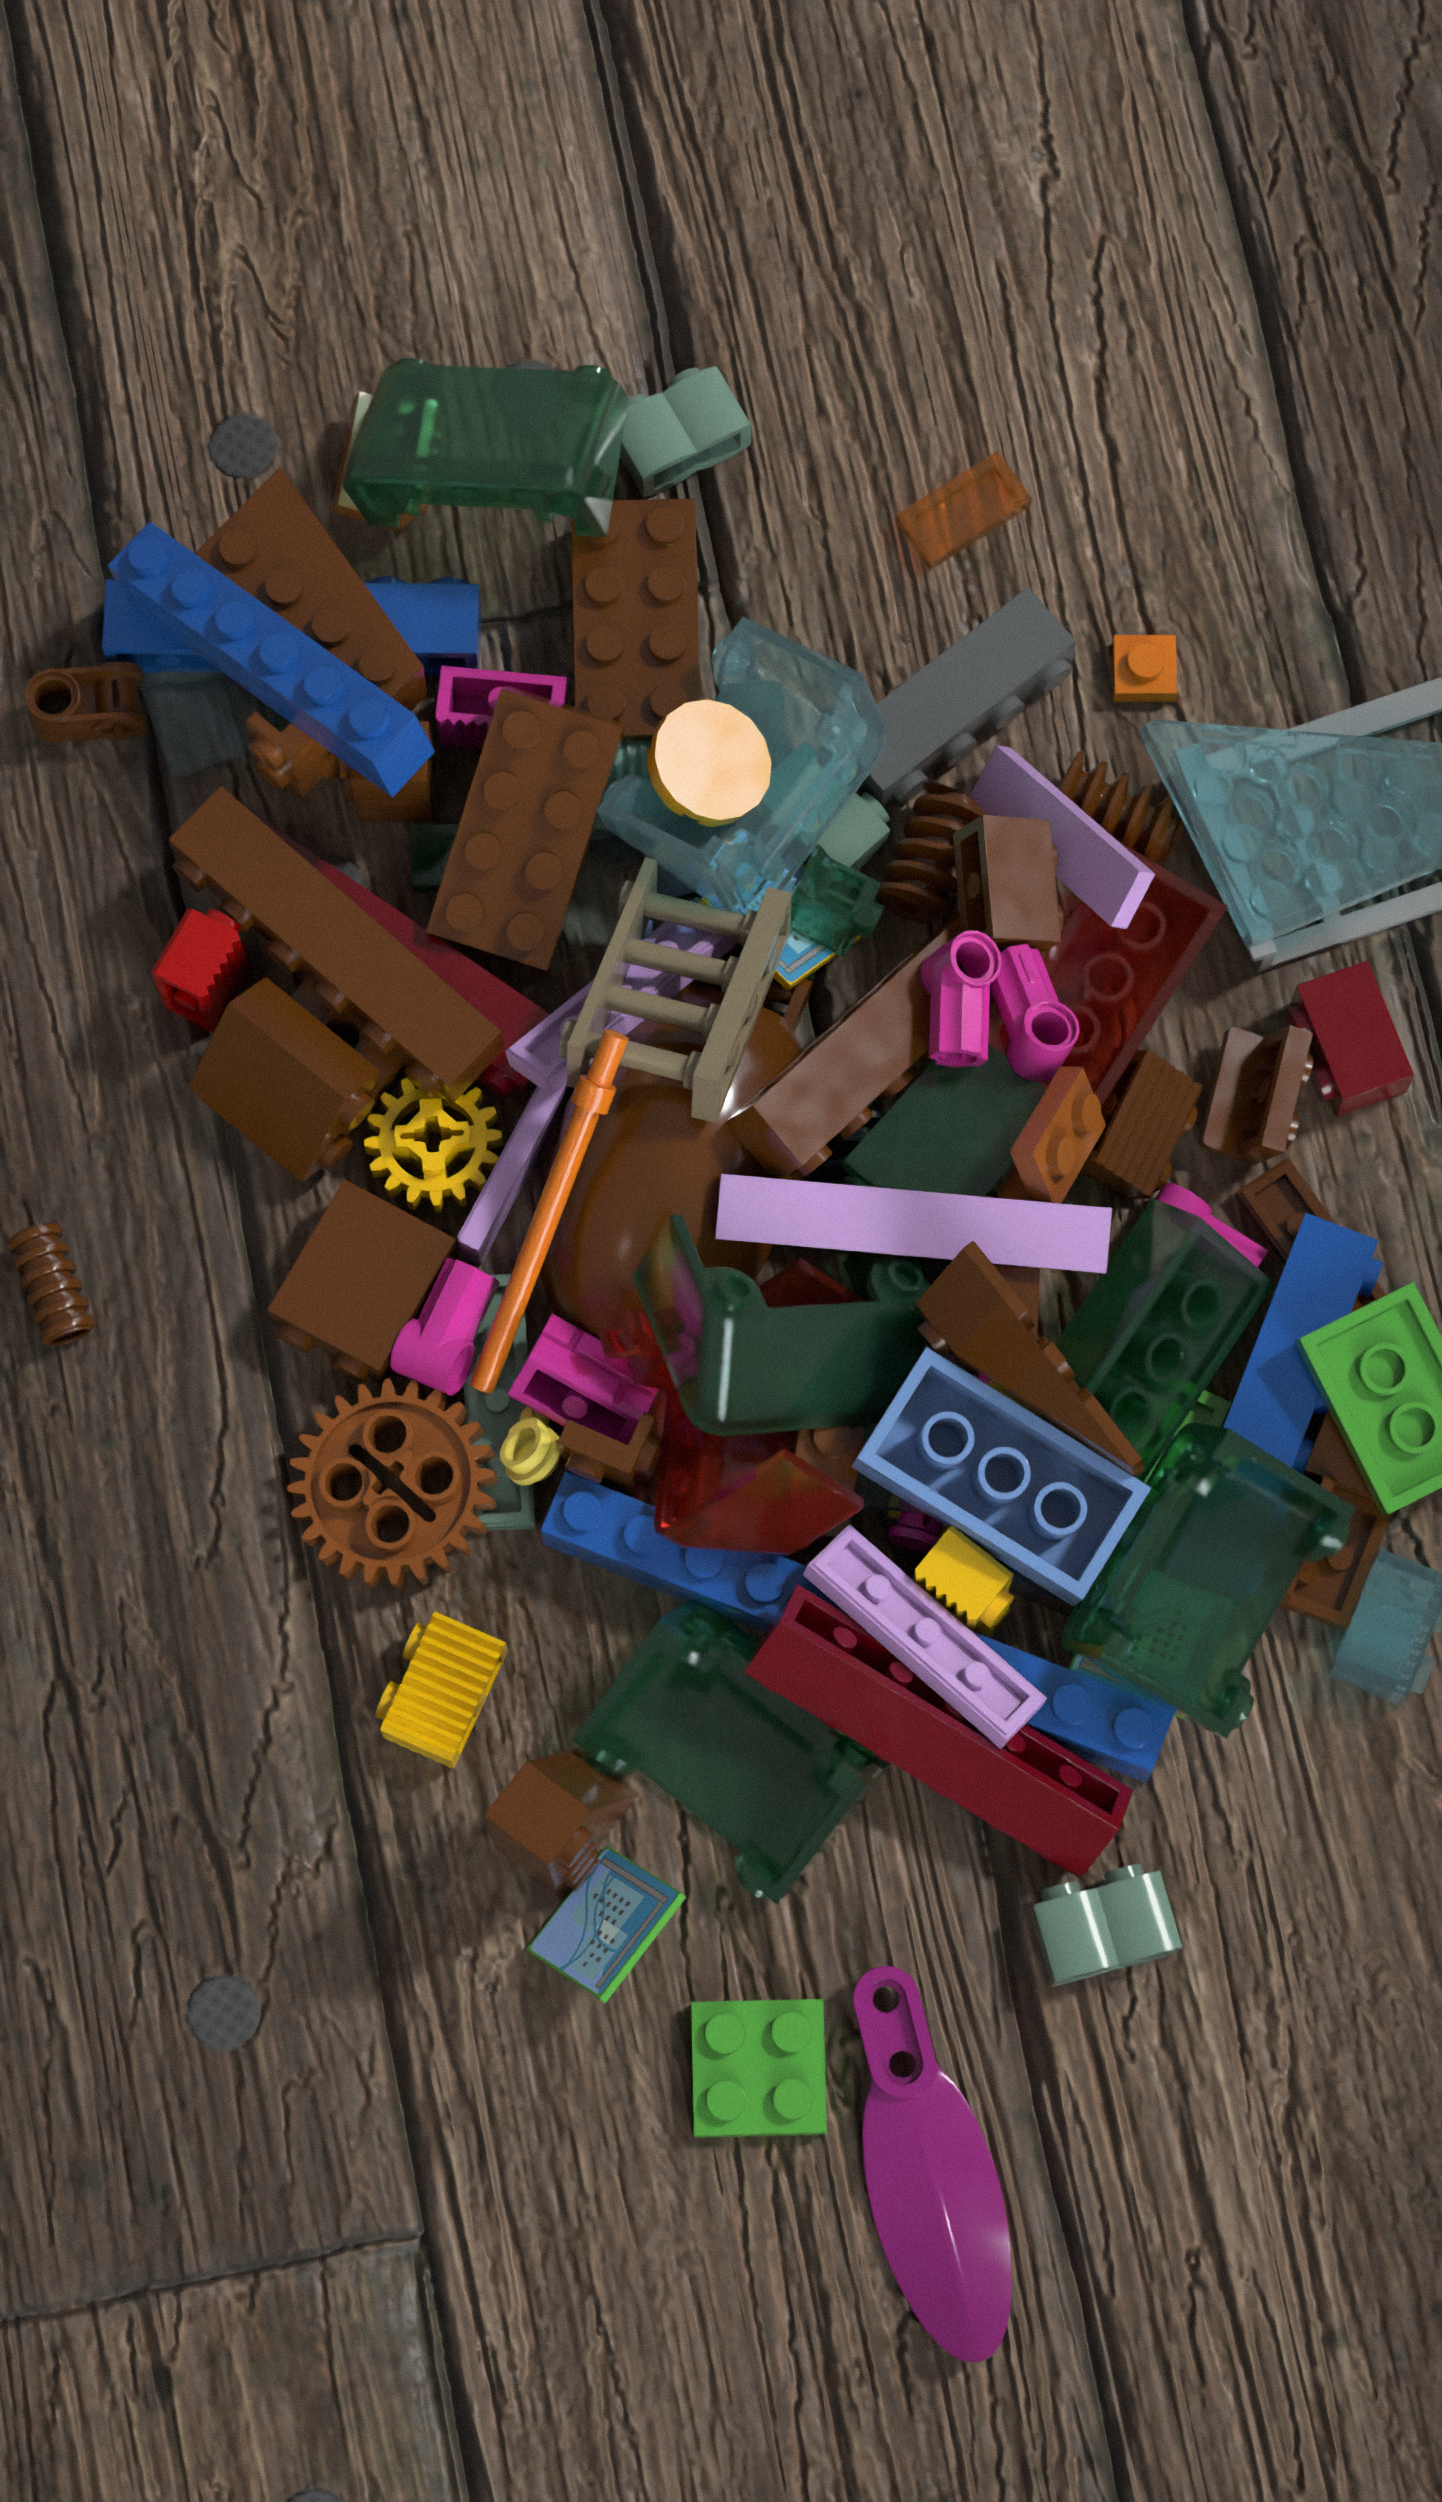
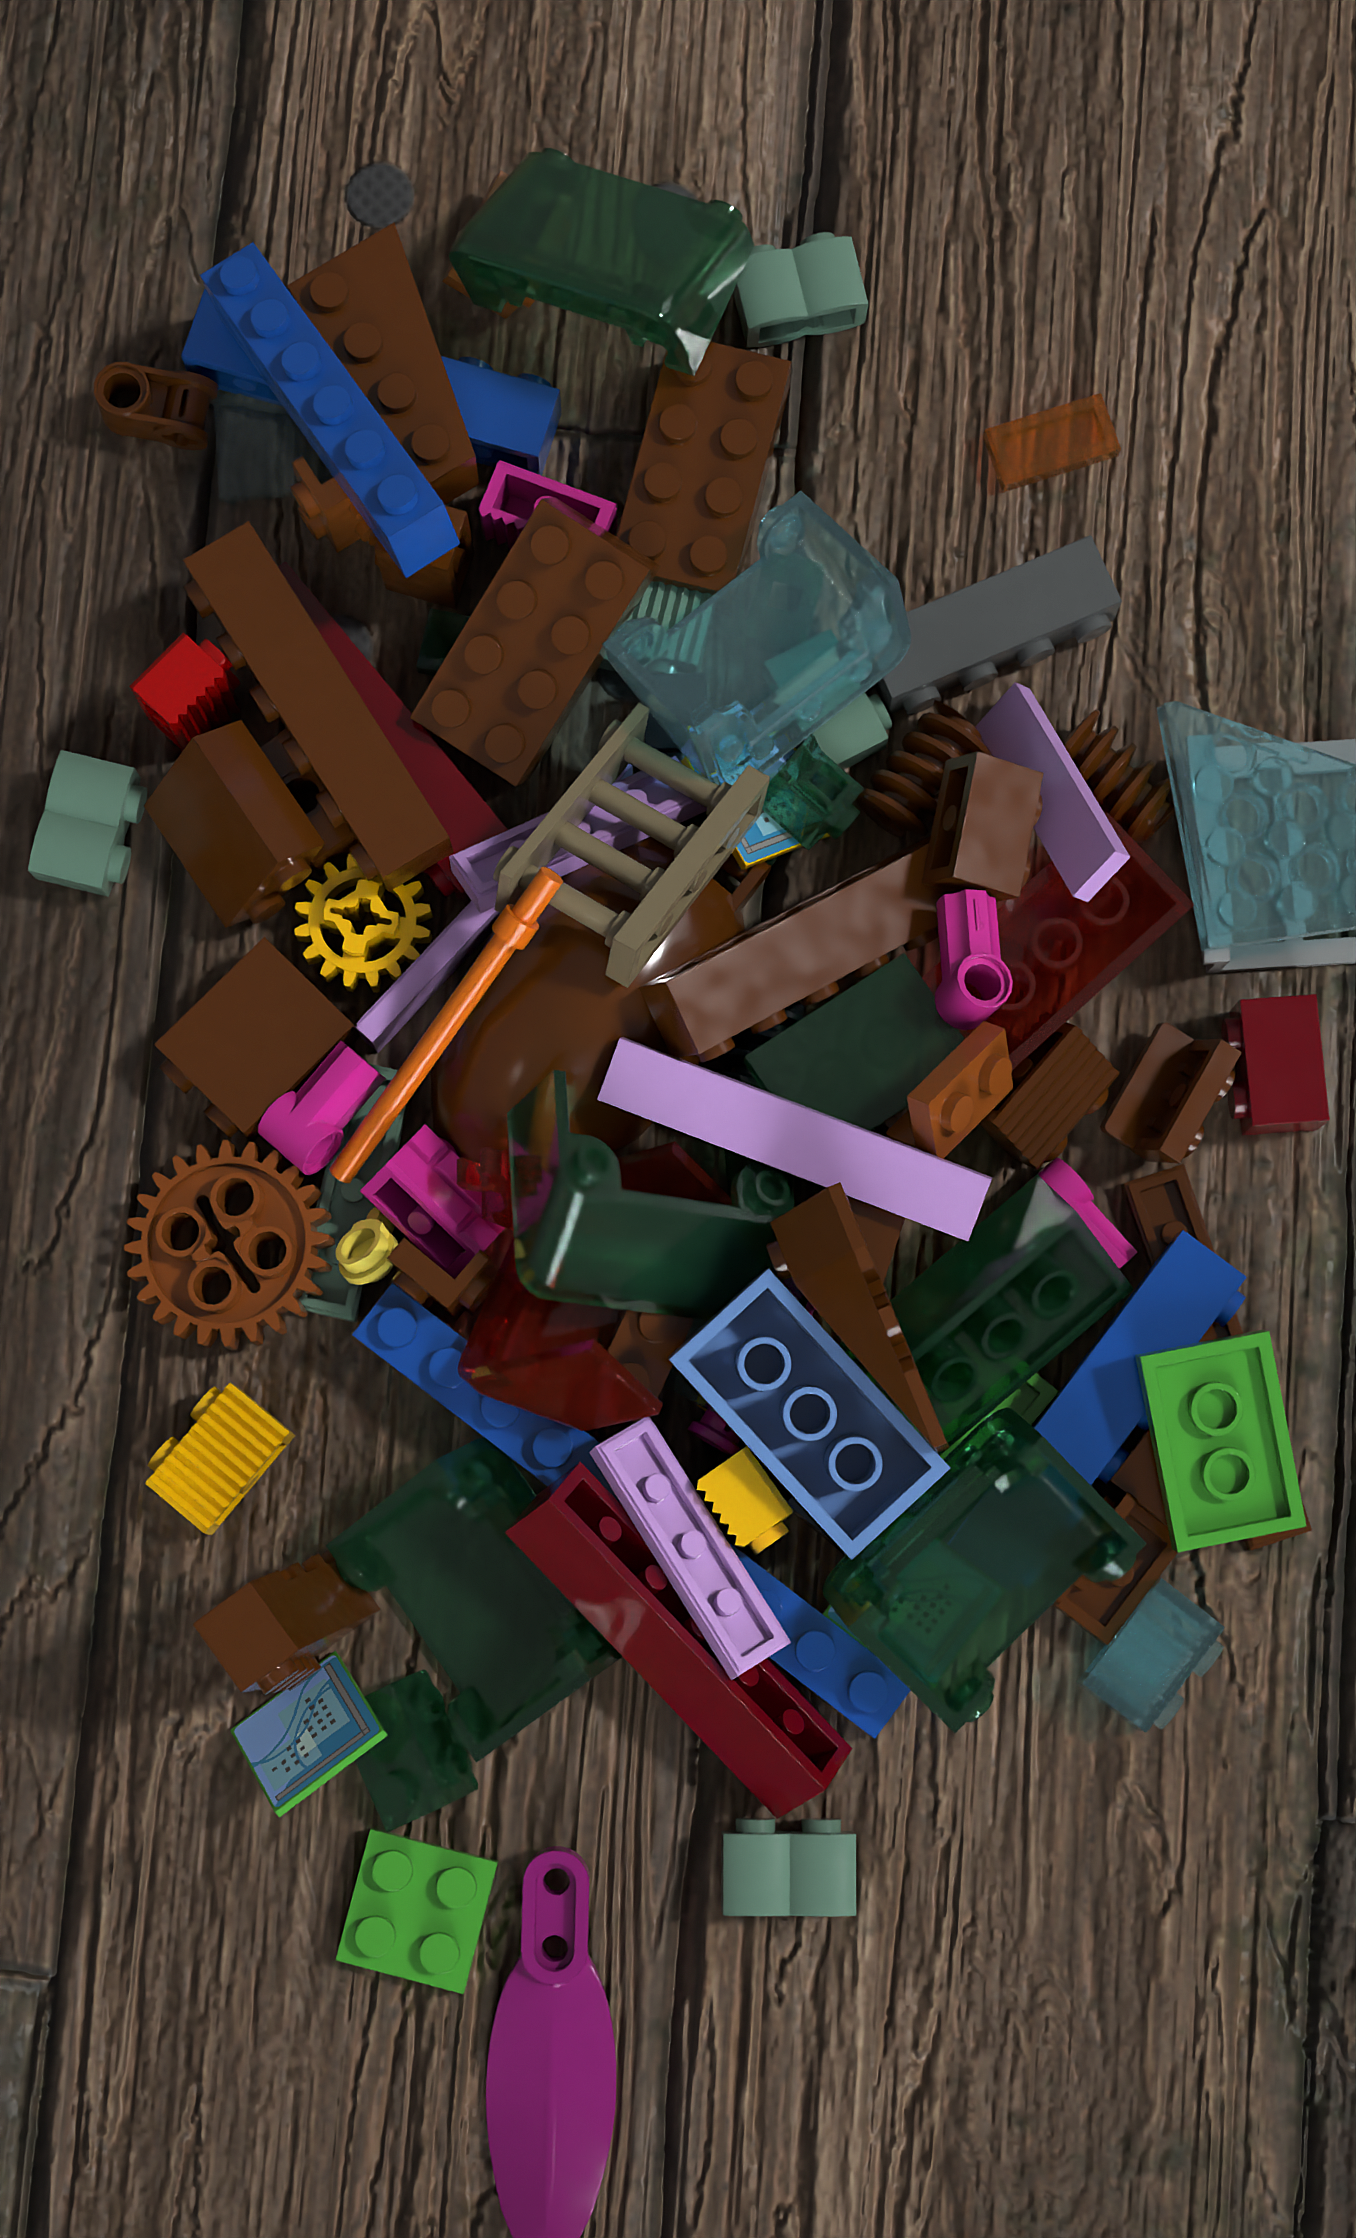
camera: 15 degrees right, 5 degrees up
(136, 1119) = (87, 823): none -> sand green brick
(709, 762) = (727, 626): tile -> none
(717, 1925) = (419, 1760): none -> clear green bracket
(959, 1000) = (901, 931): dark pink piece -> none
(1144, 668) = (1182, 644): orange plate -> none

